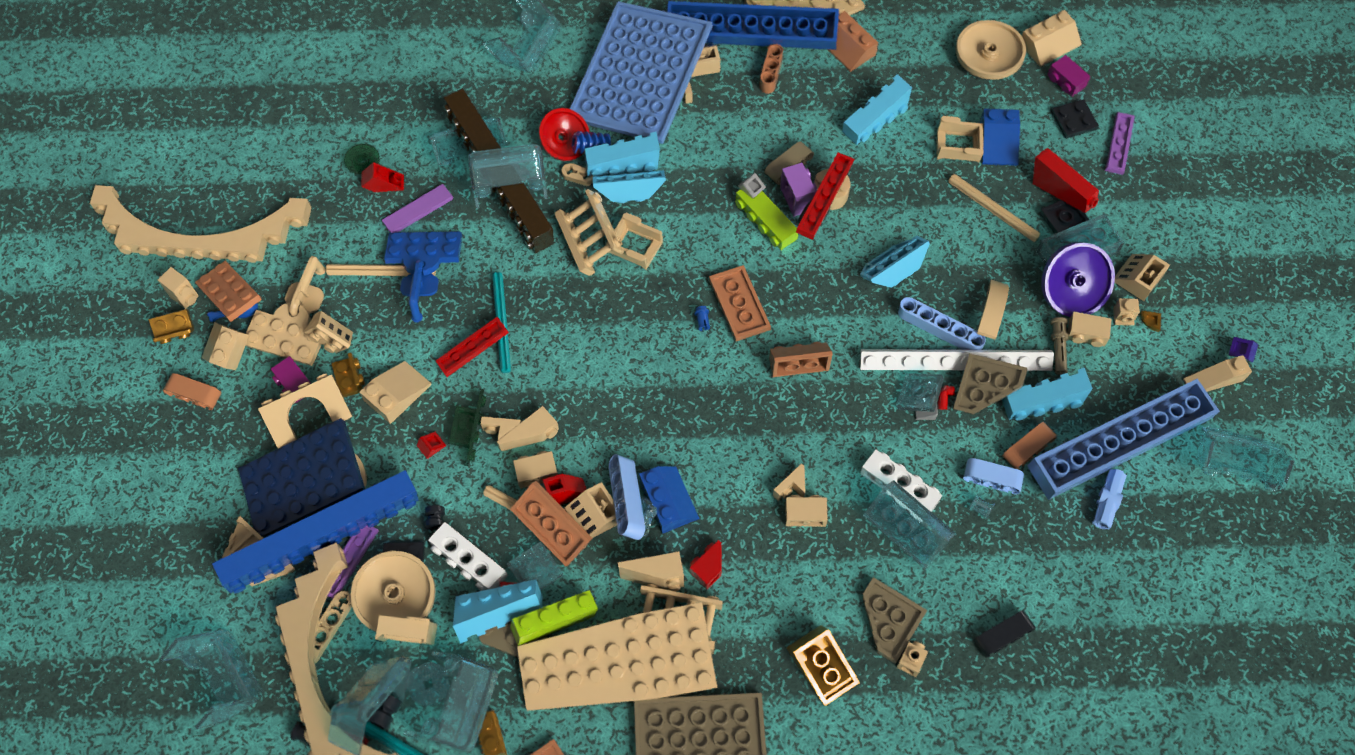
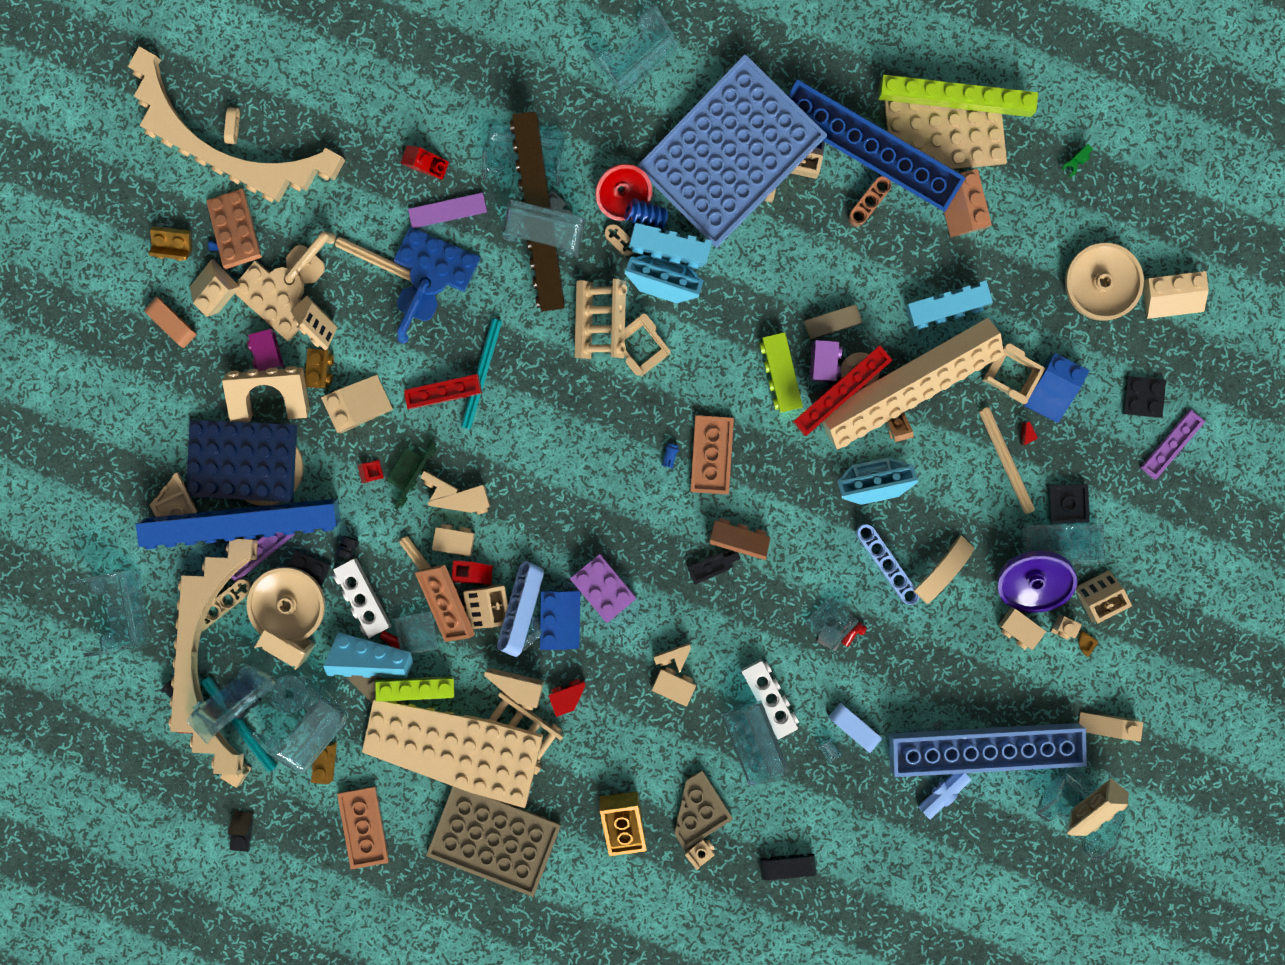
camera: 20 degrees right, 25 degrees up
(178, 288) = (187, 207): tan brick -> none
(199, 216) = (231, 125): none -> tan beam
(360, 153) = (410, 118): clear green dish -> none
(696, 451) = (603, 588): none -> medium lavender brick
(752, 185) = (780, 338): light grey slope -> none
(787, 393) = (712, 566): none -> black hinge
(880, 176) = (914, 383): none -> tan brick
(887, 216) = (899, 428): none -> medium nougat slope
(950, 359) = (882, 603): white plate -> none
(987, 382) = (895, 643): dark tan plate -> none
(998, 179) = (1027, 434): none -> red slope
(1029, 445) = (904, 715): nougat beam -> none
(1048, 396) = (943, 677): medium azure wedge -> none
(1059, 338) = (990, 623): dark tan pin -> none
(1063, 181) = (1086, 472): red slope -> none
(1068, 75) = (1165, 347): magenta brick -> none
(1243, 347) = (1150, 712): dark purple panel -> none
(1254, 441) = (1097, 808): none -> tan slope

